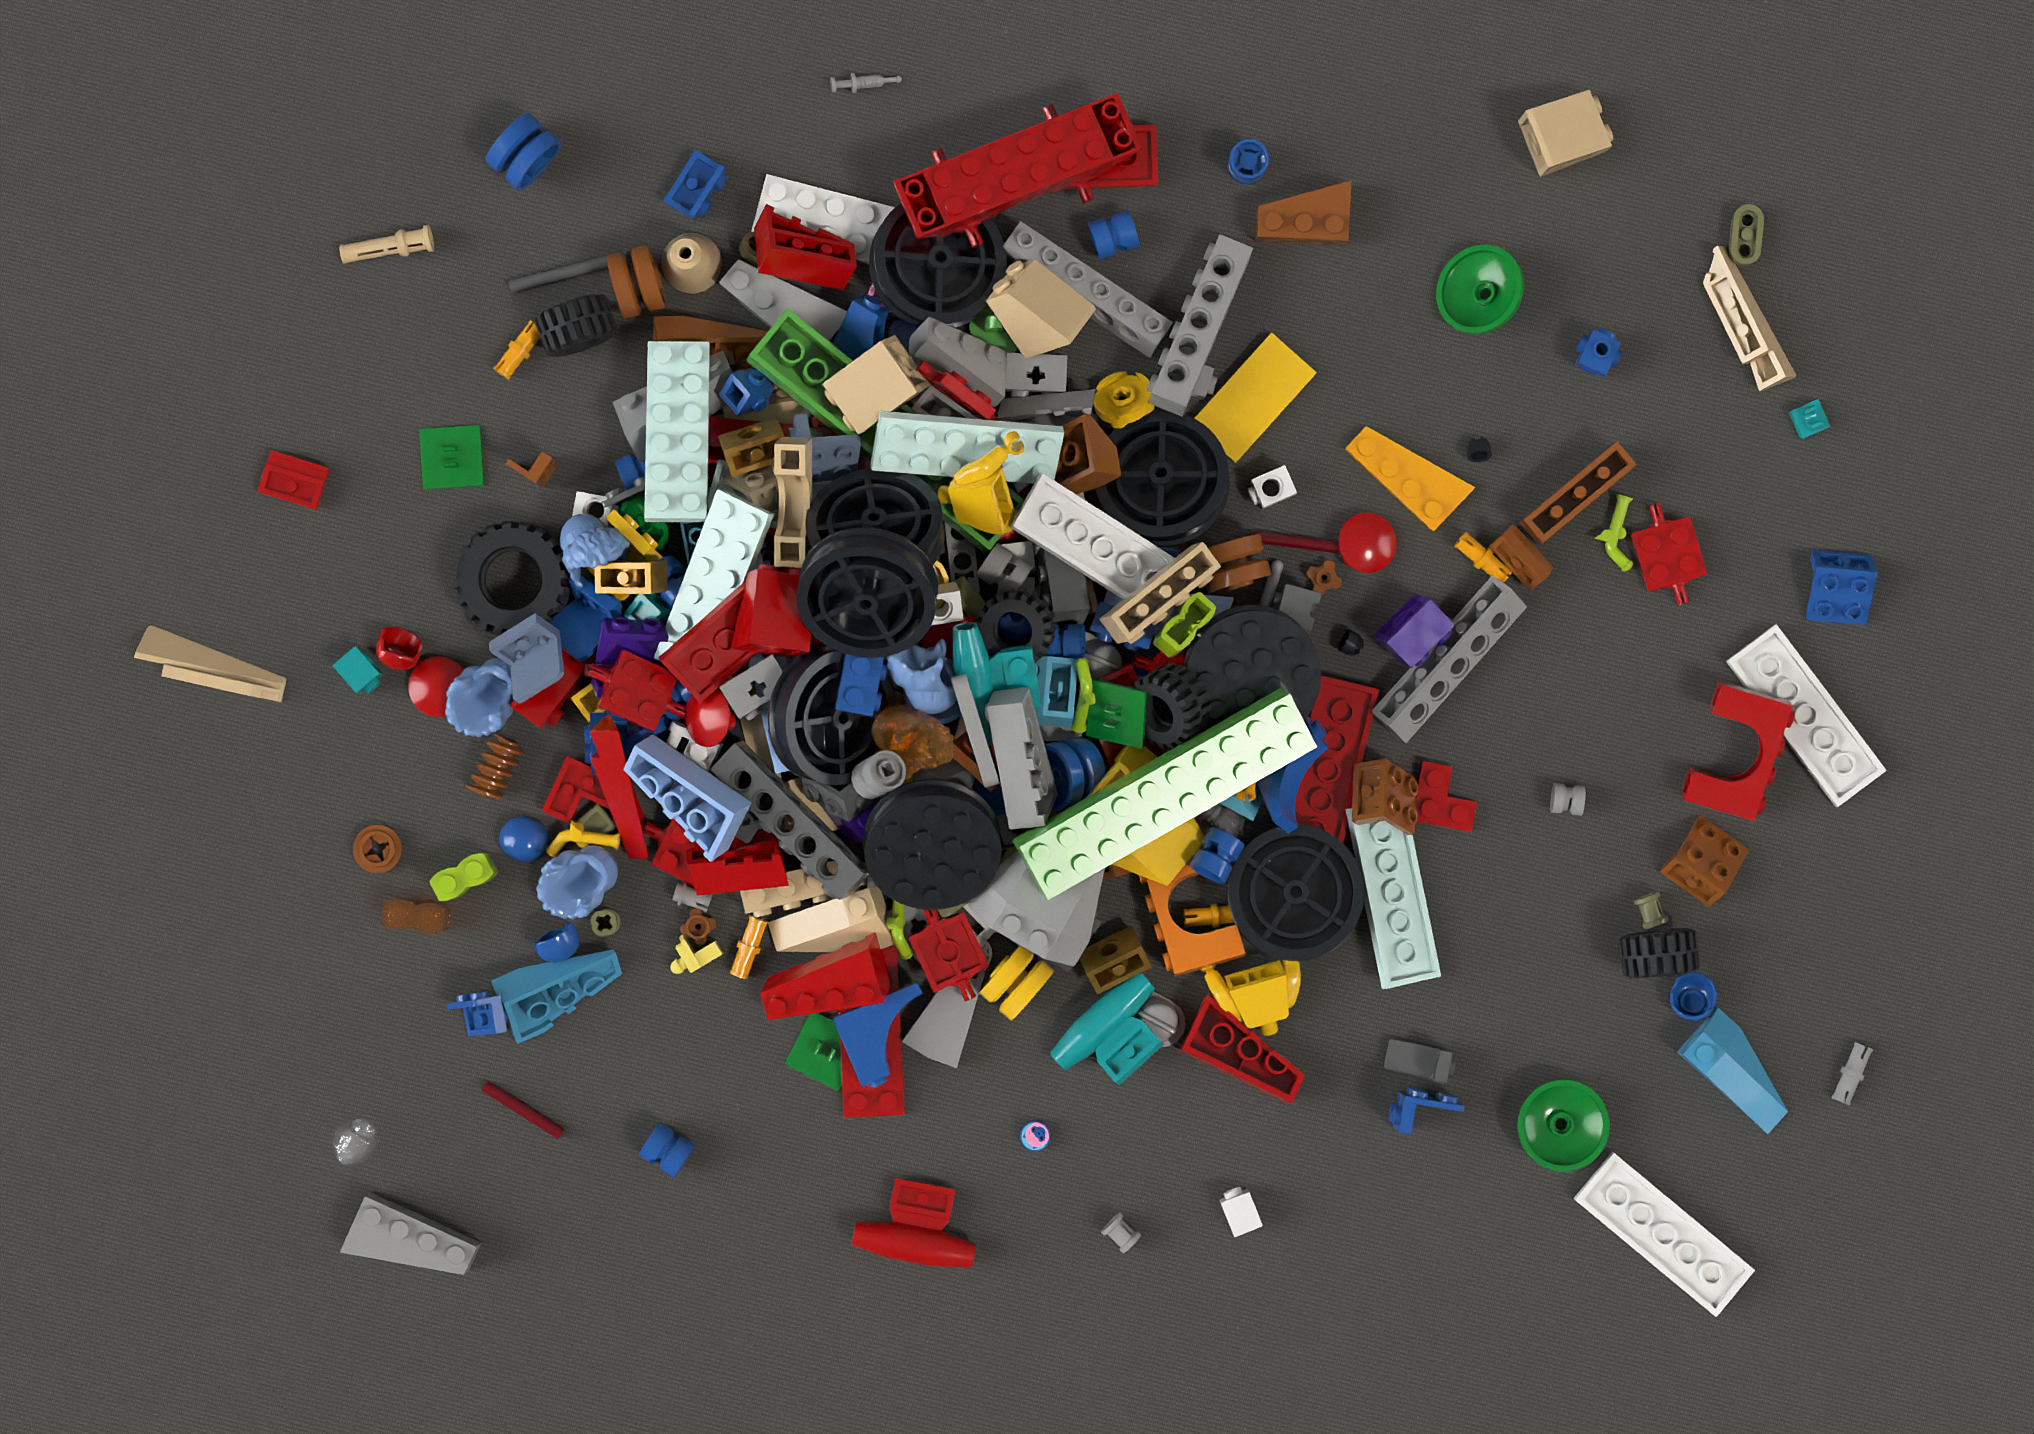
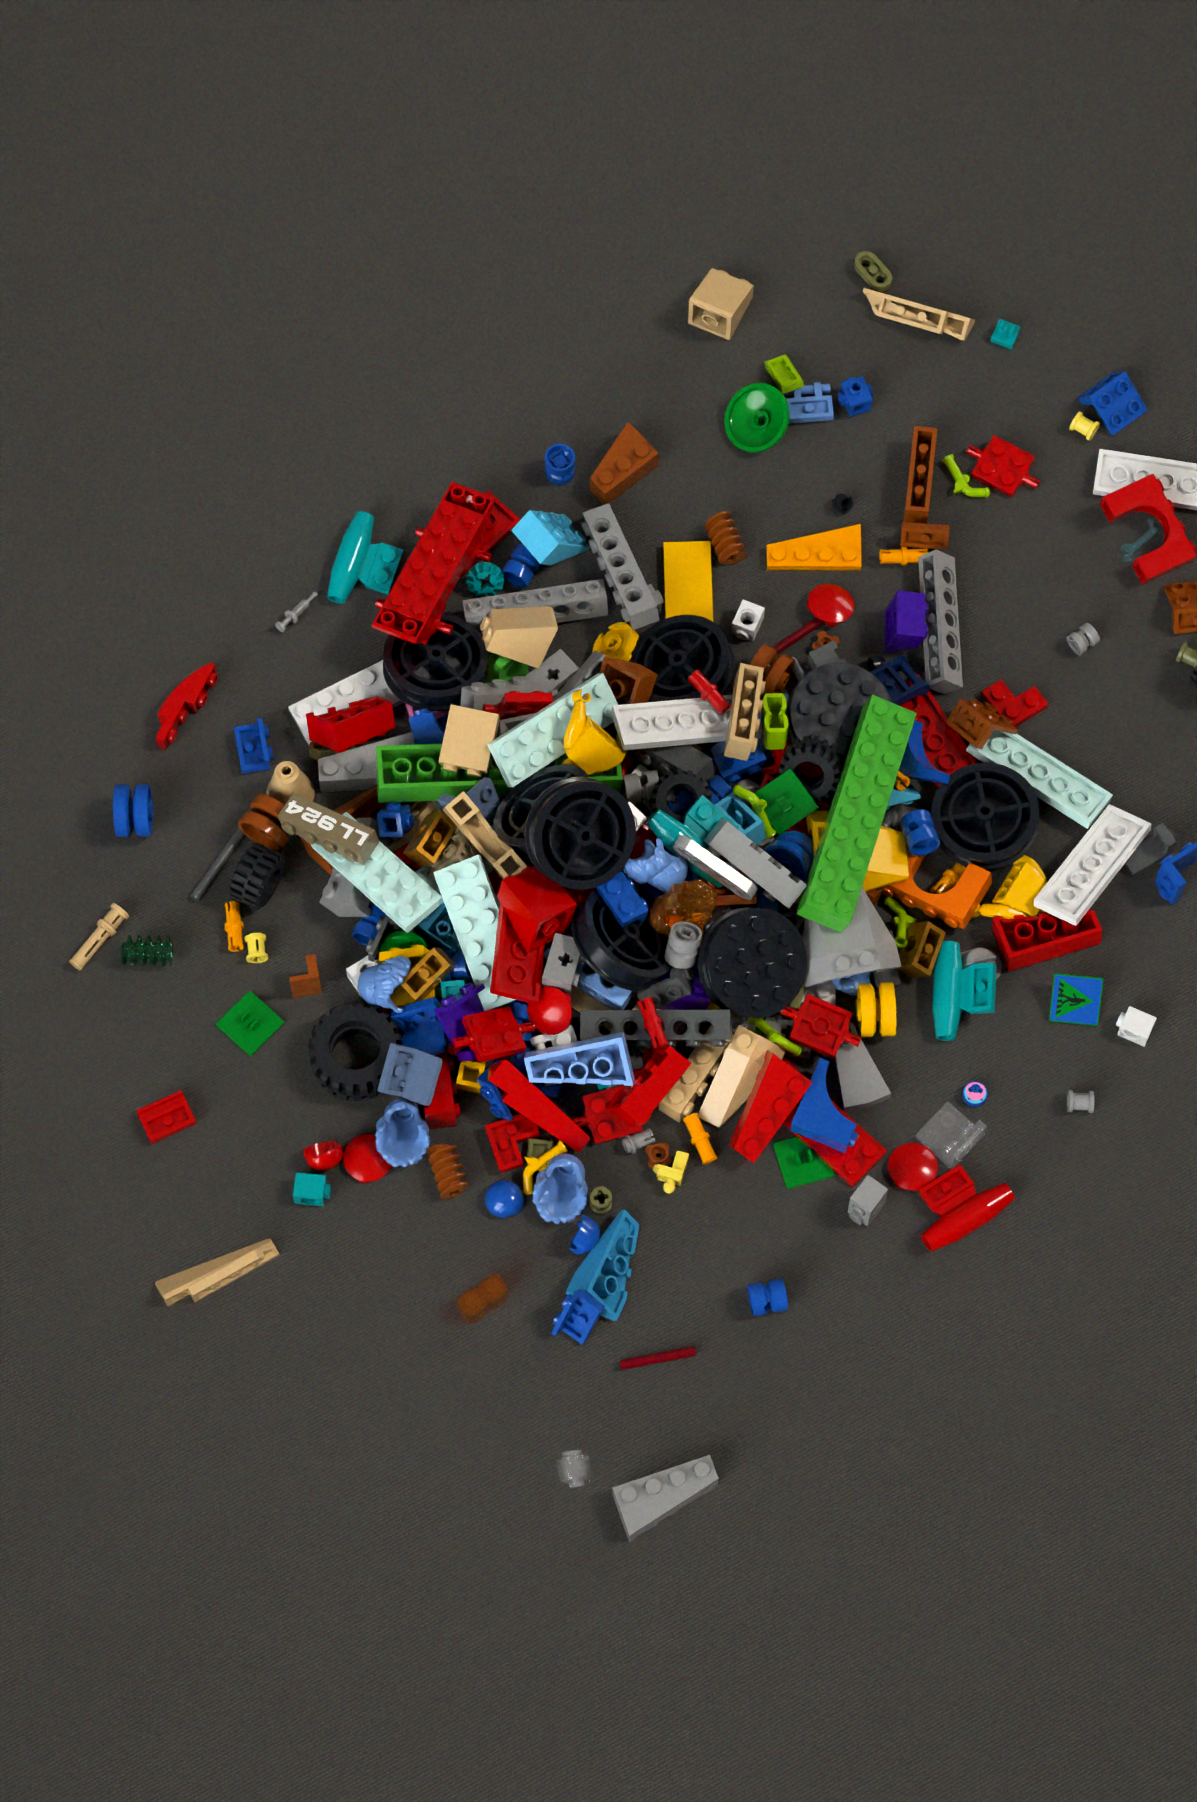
camera: 45 degrees left, 20 degrees down
(364, 843) = (415, 1274): dark orange gear -> none
(416, 303) = (147, 950): none -> clear green piece
(470, 872) = (487, 1254): lime brick -> none
(528, 388) = (256, 948): none -> light yellow bush
(668, 349) = (328, 829): none -> dark tan brick
(683, 76) = (184, 698): none -> red slope
(783, 820) = (653, 1023): none -> red pin
(834, 1149) = (867, 1201): none -> light grey brick
(913, 1150) = (912, 1166): none -> red dish
(970, 87) = (359, 560): none -> teal plate
(974, 1154) = (950, 1135): none -> clear bracket
(1066, 207) = (482, 571): none -> teal gear
(1125, 914) = (902, 921): none -> lime piece
(1149, 540) = (709, 692): none -> red pin
(1163, 233) = (549, 537): none -> medium azure slope
(1210, 1137) = (1076, 999): none -> piece
(1331, 384) = (725, 538): none -> dark orange piece
(1340, 682) = (895, 685): none -> dark blue plate
(1349, 1029) = (1092, 865): none -> white plate
(1544, 323) = (810, 408): none -> medium blue plate
(1552, 265) = (784, 374): none -> lime plate
(1723, 750) = (1140, 541): none -> clear light blue piece
(1786, 586) = (1084, 426): none -> light yellow bush

